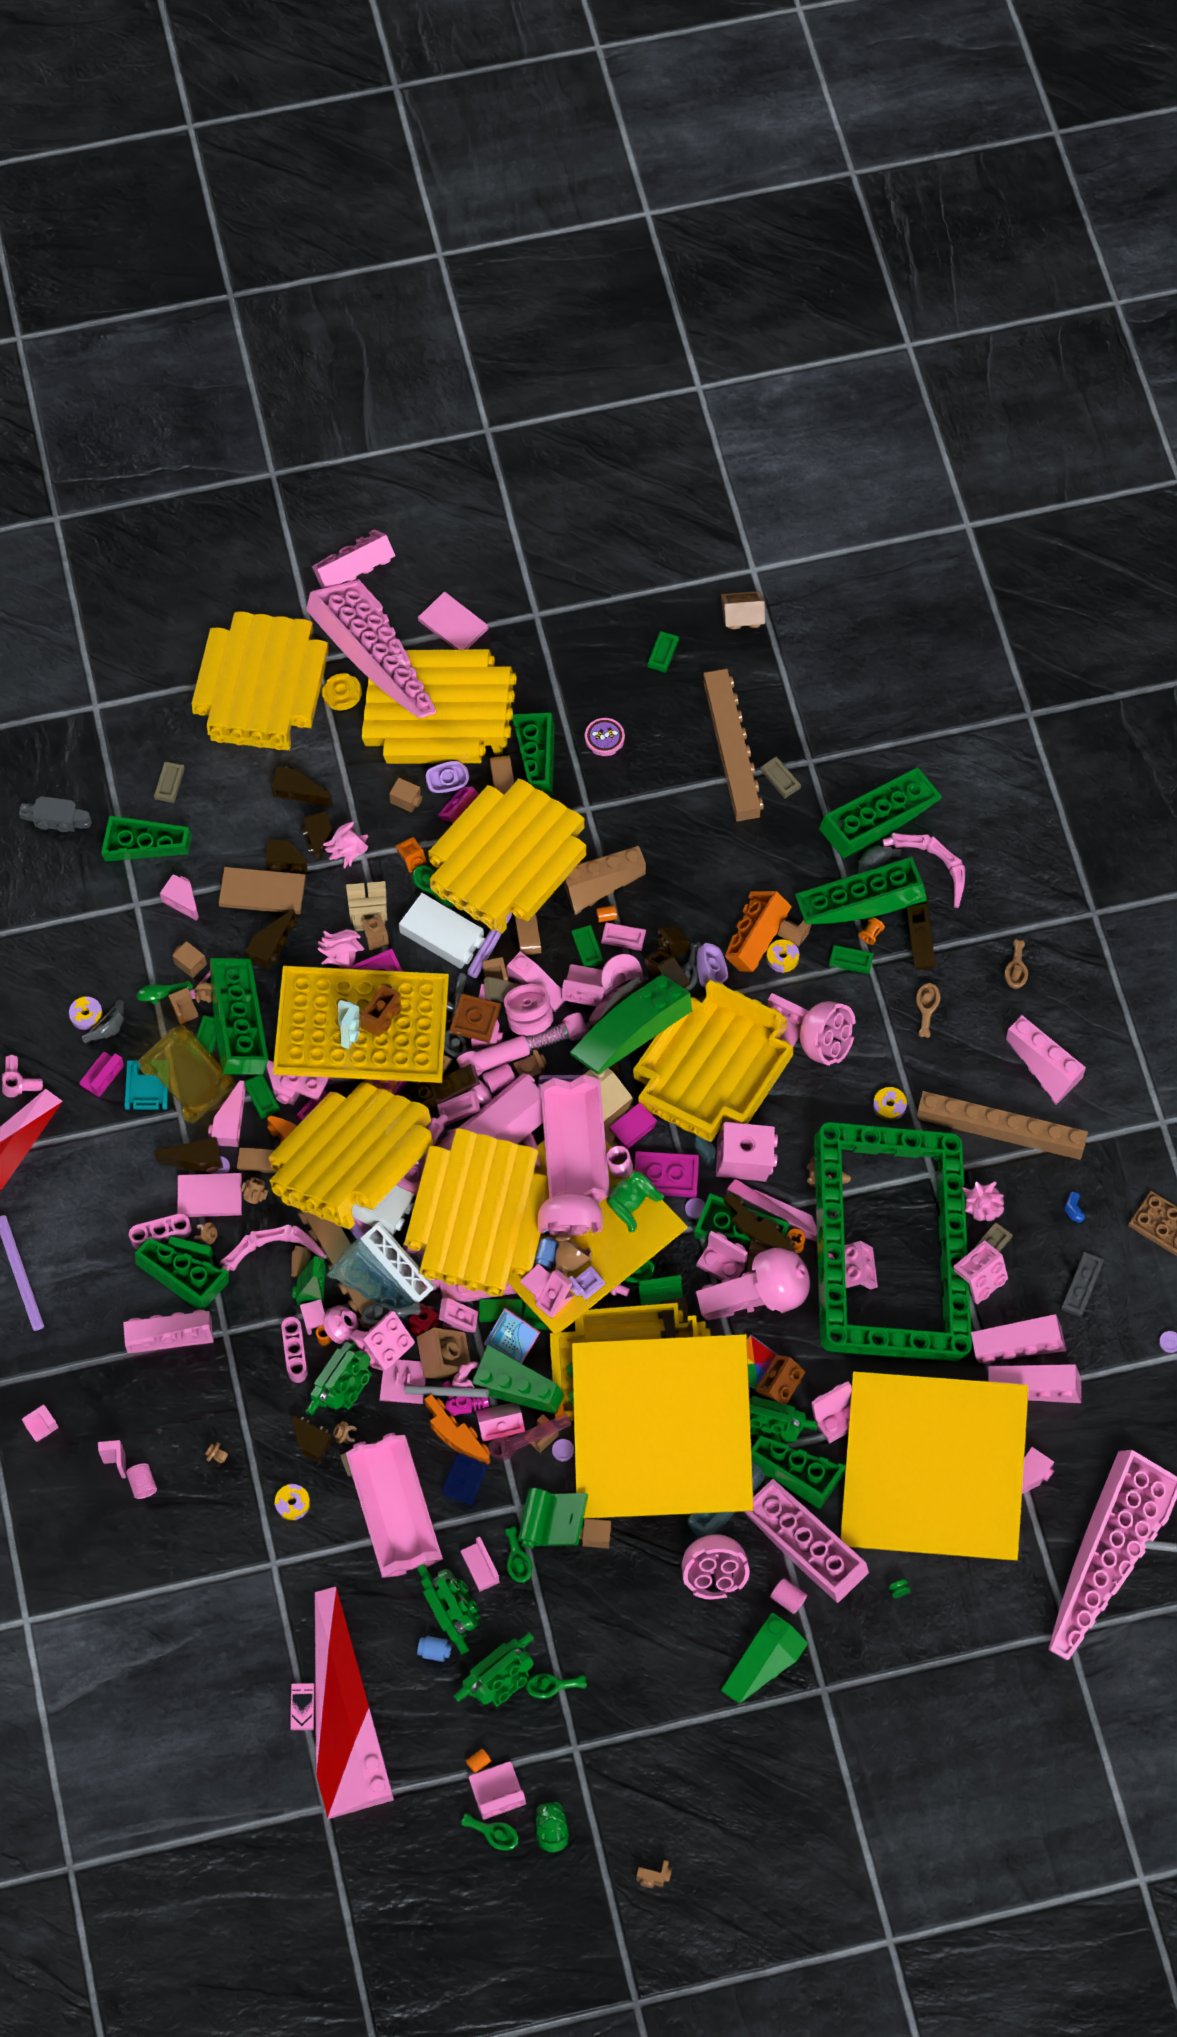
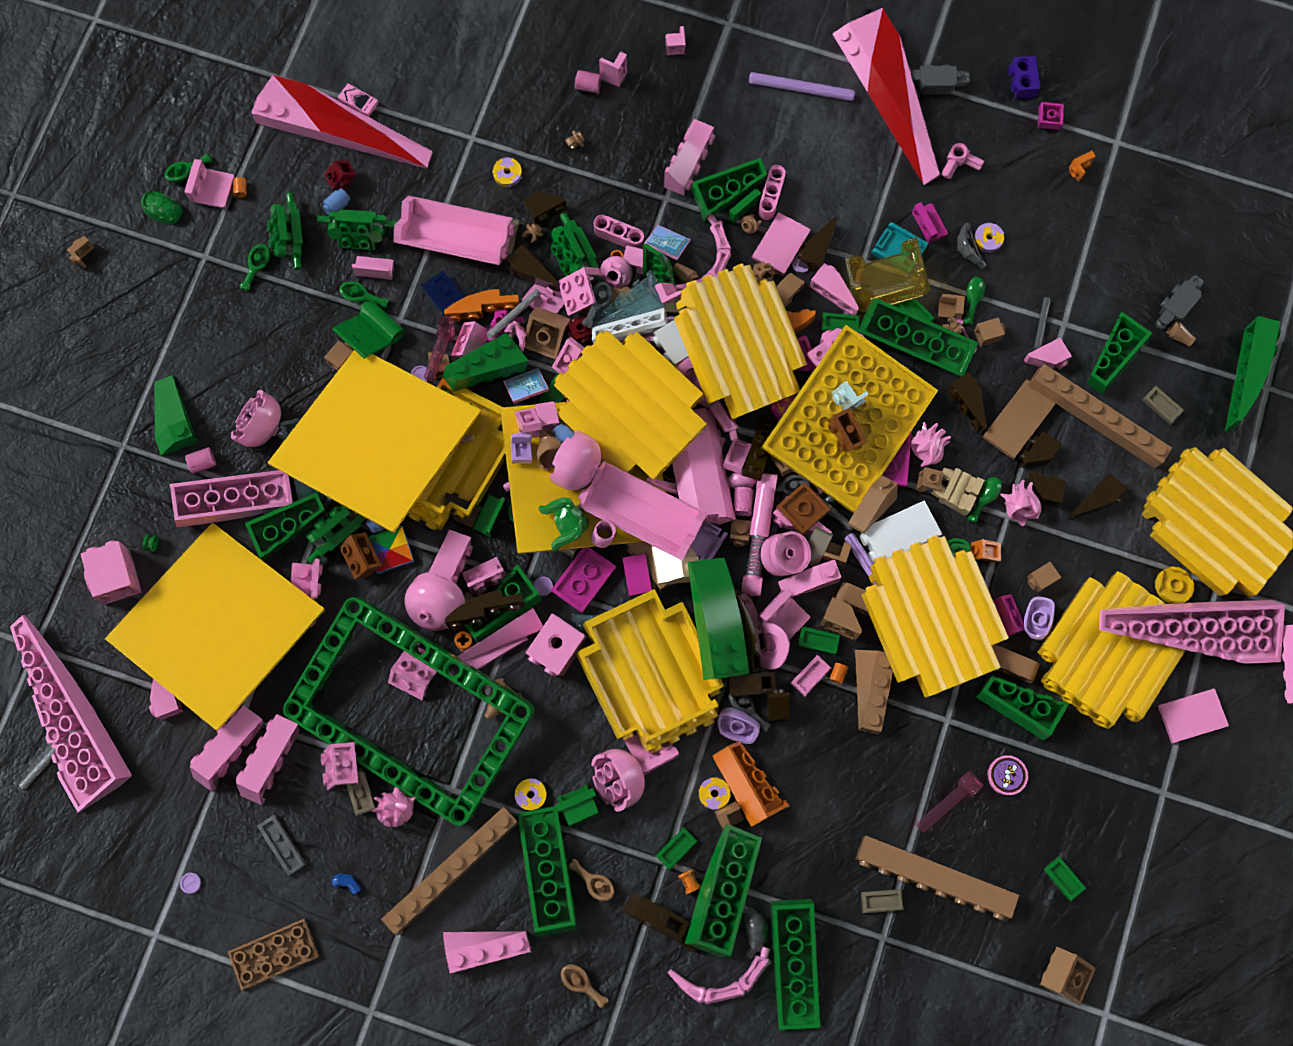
camera: 120 degrees right, 10 degrees up
(87, 800) = (1179, 333): none -> medium nougat cone
(94, 720) = (1253, 367): none -> green slope
(149, 921) = (1042, 323): none -> dark grey bar
(219, 823) = (1099, 416): none -> medium nougat brick
(276, 1297) = (667, 242): none -> piece
(341, 1239) = (668, 293): none -> bright pink panel
(354, 876) = (989, 492): none -> green piece
(386, 1411) = (530, 269): none -> dark brown slope
(402, 1660) = (340, 174): none -> dark red brick
(432, 962) = (874, 504): none -> medium nougat slope
(557, 934) = (841, 619): none -> medium nougat slope
(635, 761) = (967, 785): none -> clear pink axle
(872, 1053) = (578, 805): none -> green plate
(946, 1045) = (547, 872): none -> green slope
(954, 1598) = (110, 572): none -> bright pink brick

